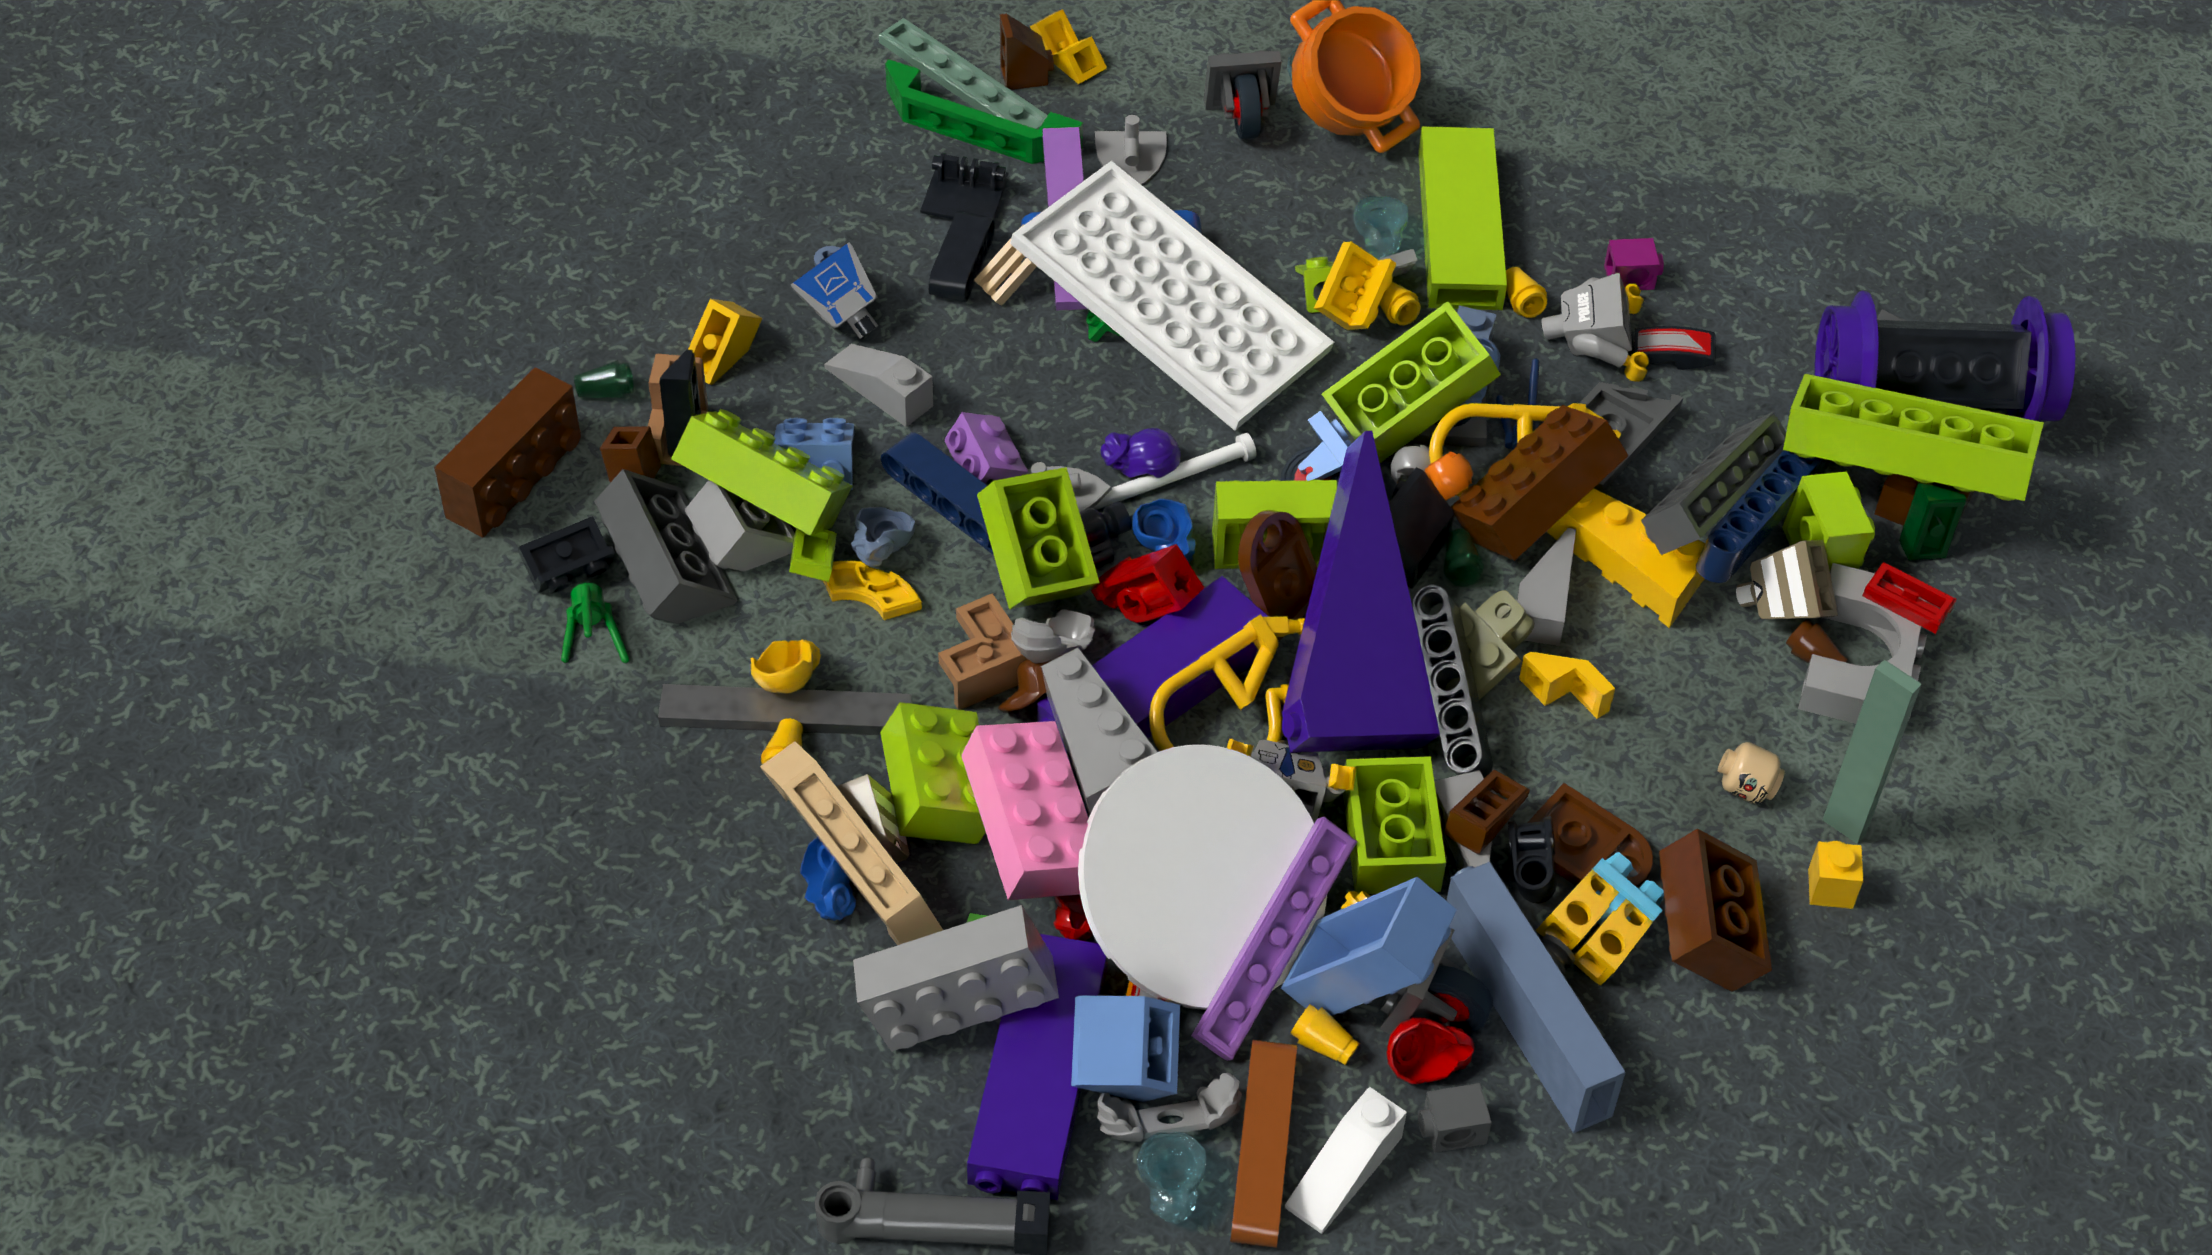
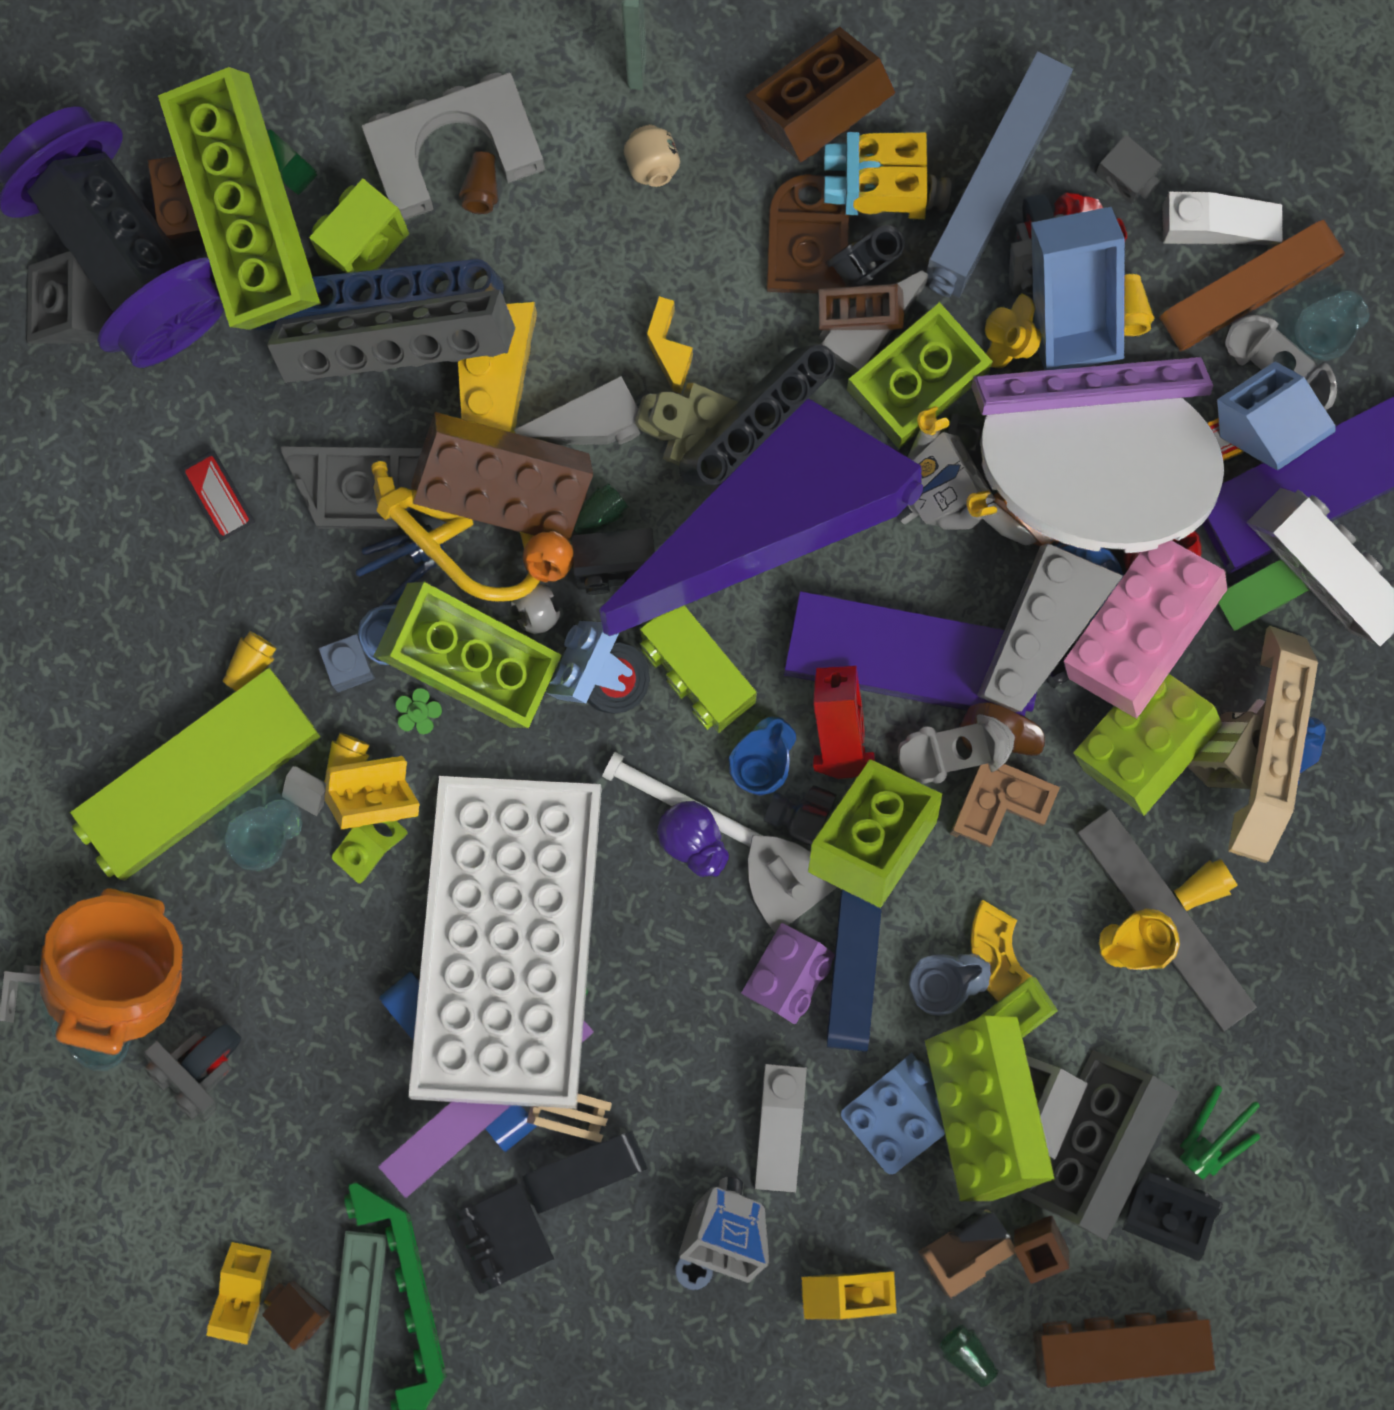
camera: 125 degrees left, 30 degrees up
(1132, 150) = (329, 1132): light grey shield -> none
(1264, 634) = (824, 593): yellow piece -> none
(1281, 568) = (753, 622): reddish brown tile -> none
(1598, 323) = (244, 570): light grey torso -> none
(1635, 261) = (144, 589): magenta brick -> none
(1791, 583) = (444, 223): dark tan torso -> none
(1835, 874) = (703, 40): yellow brick -> none
(1906, 601) = (392, 162): red tile -> none

